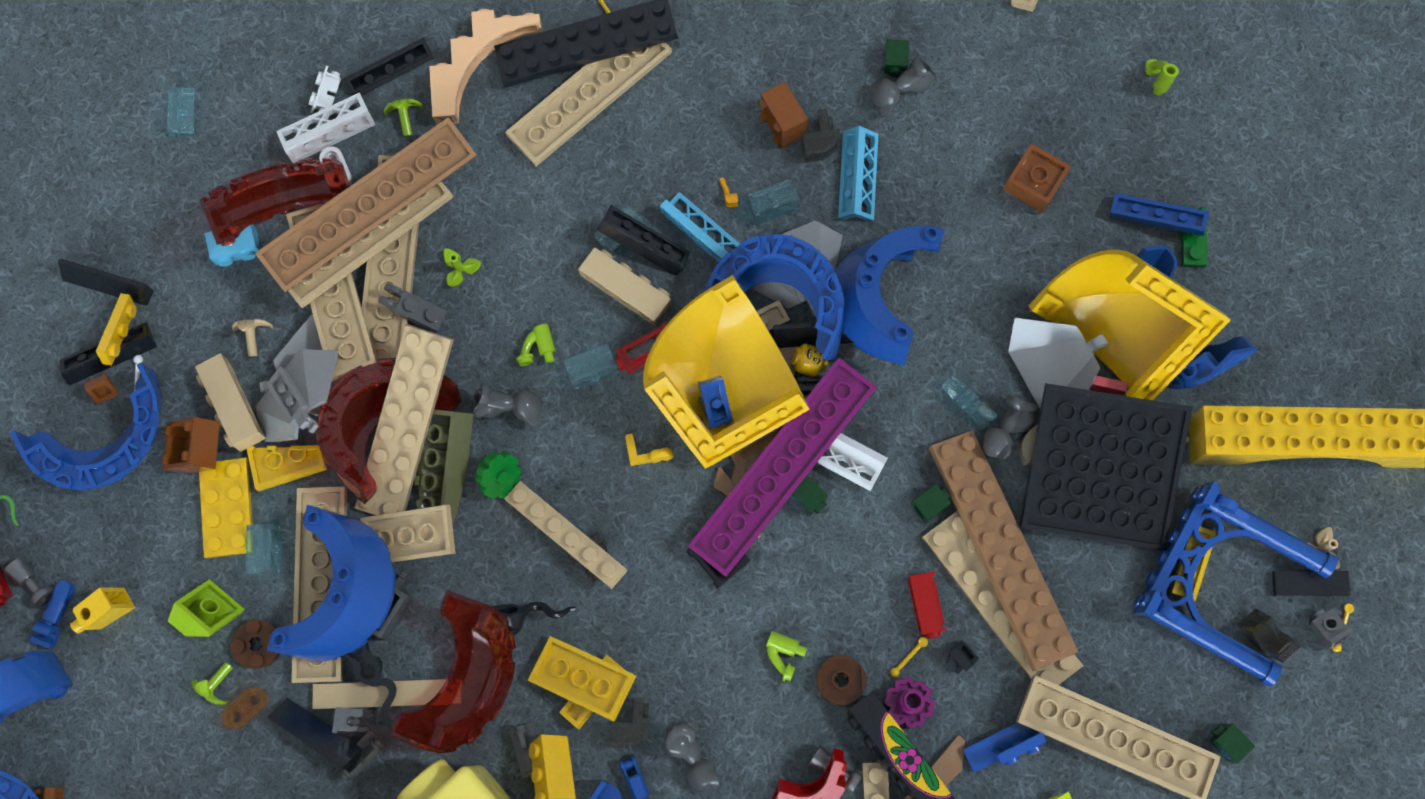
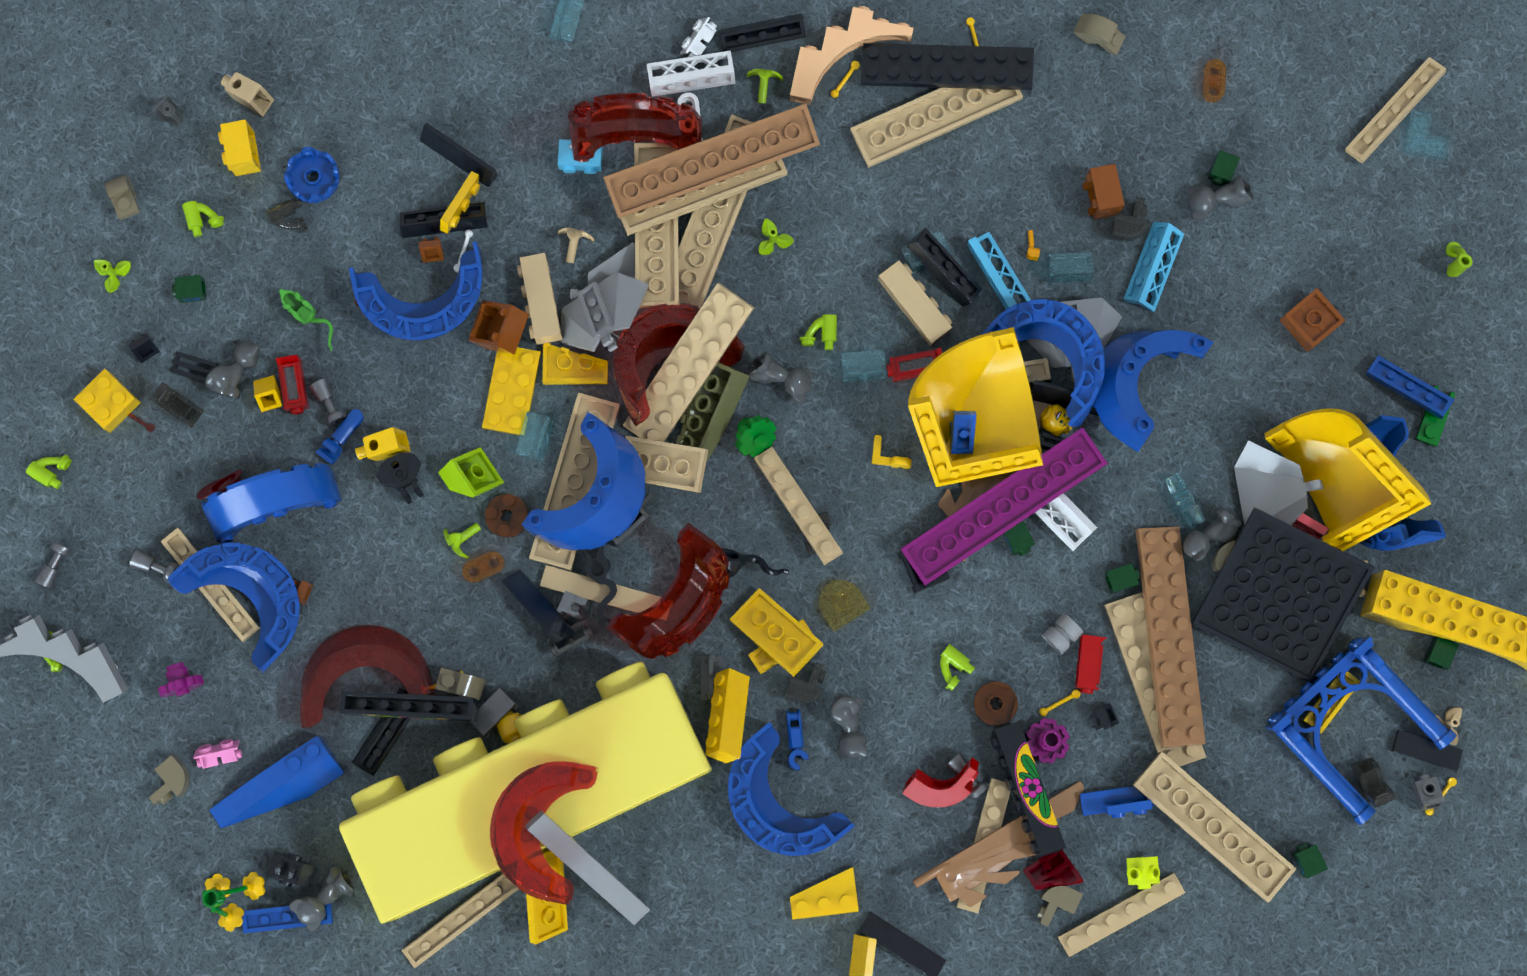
camera: 15 degrees right, 5 degrees up
(127, 635) = (402, 476): none -> black hinge
(413, 308) = (724, 265): dark grey hinge -> none
(493, 71) = (854, 66): none -> yellow hinge
(644, 624) = (841, 603): none -> clear yellow tile
(888, 581) = (1063, 632): none -> light grey wheel
(1289, 475) = (1441, 652): none -> dark green brick

